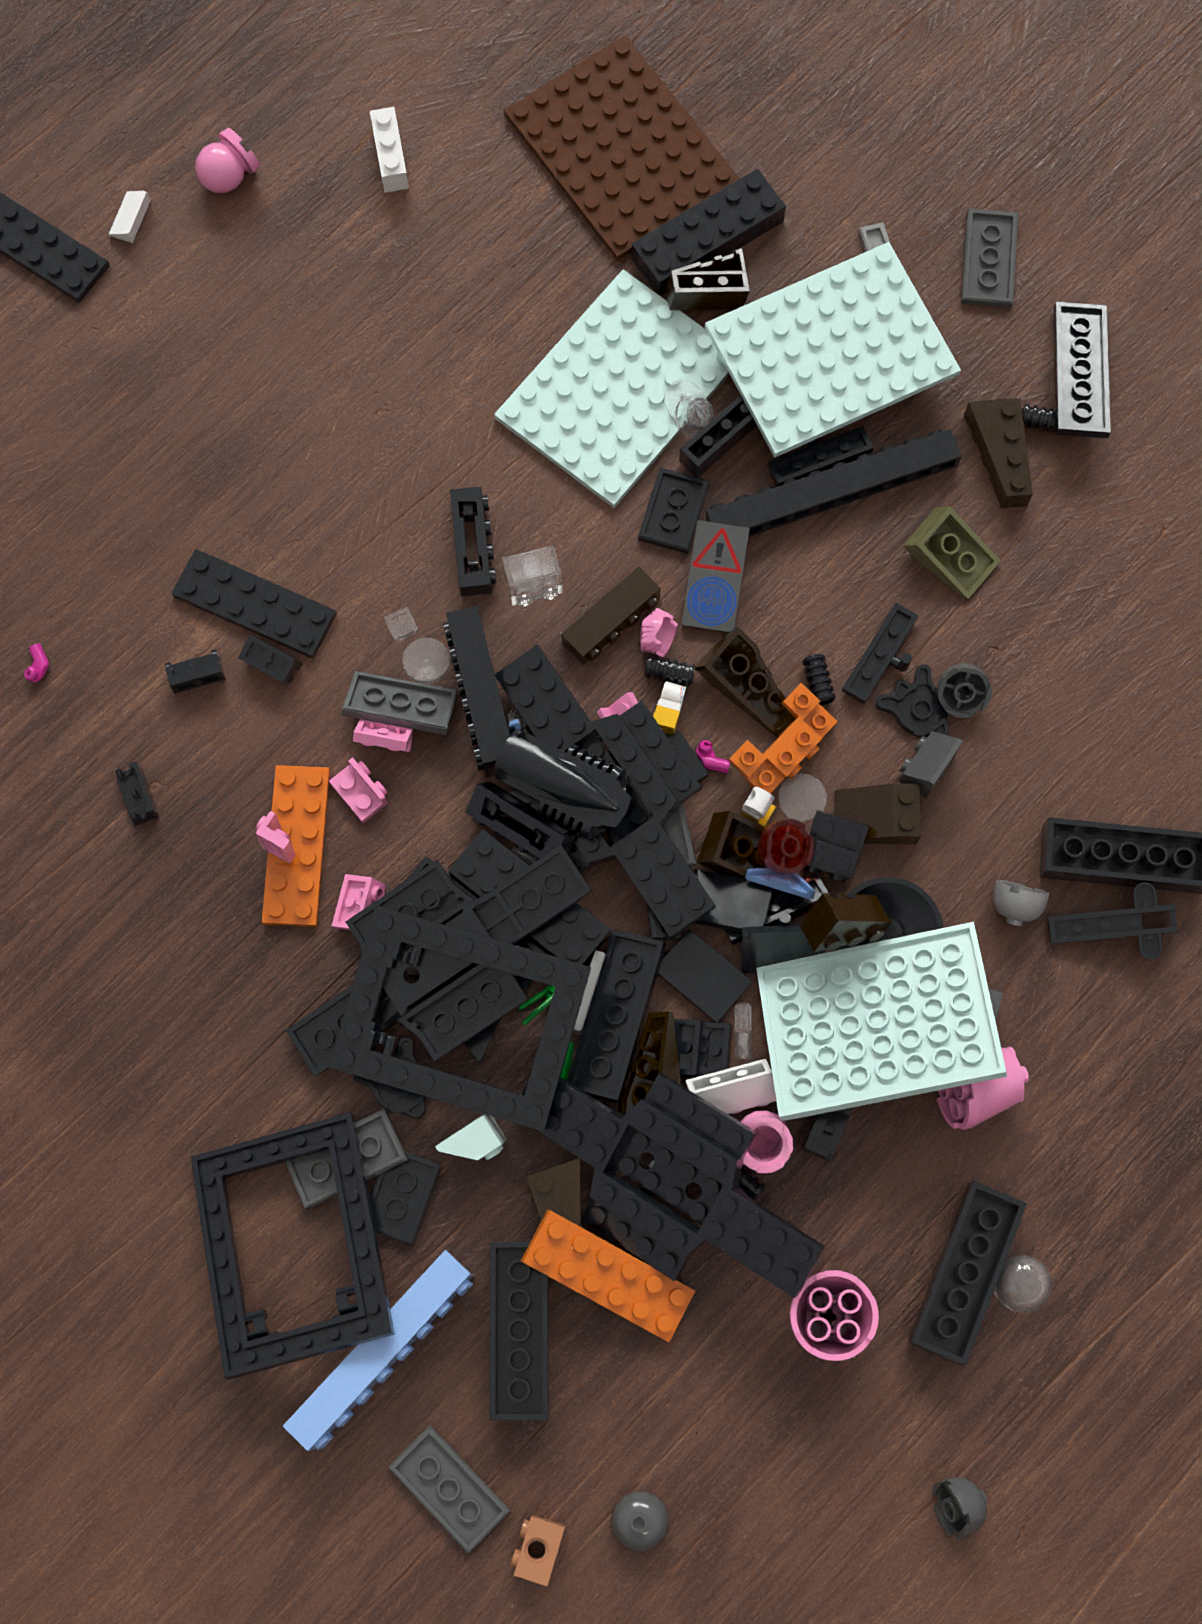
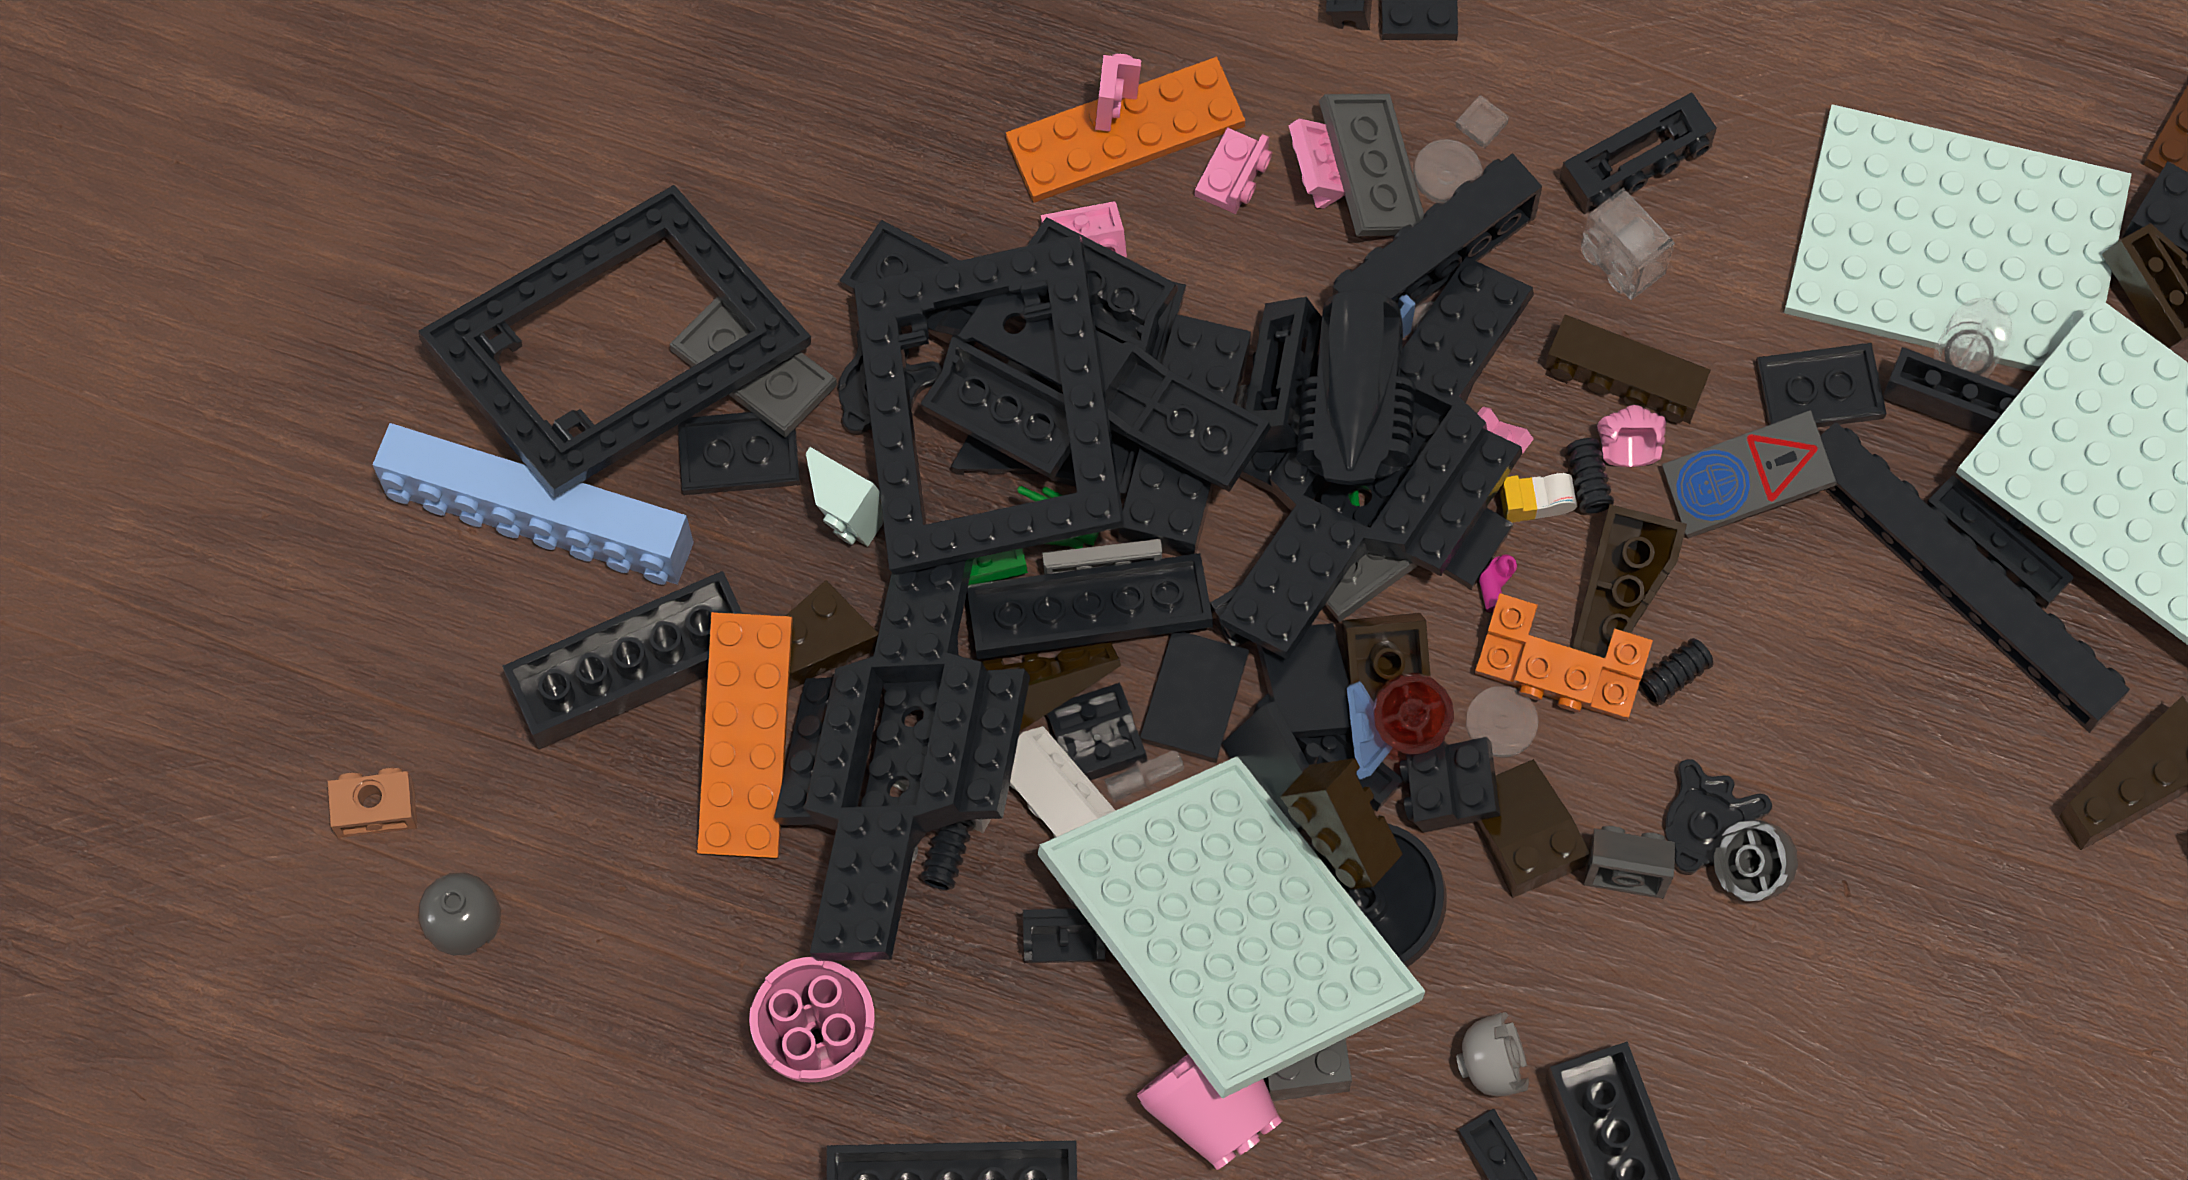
camera: 65 degrees right, 5 degrees down
(449, 1488) = (402, 668): dark grey tile -> none
(758, 806) = (1455, 664): white leg -> none
(771, 1144) = (1003, 851): bright pink tile -> none
(882, 654) = (1756, 738): black plate -> none
(952, 551) = (1953, 772): olive slope -> none

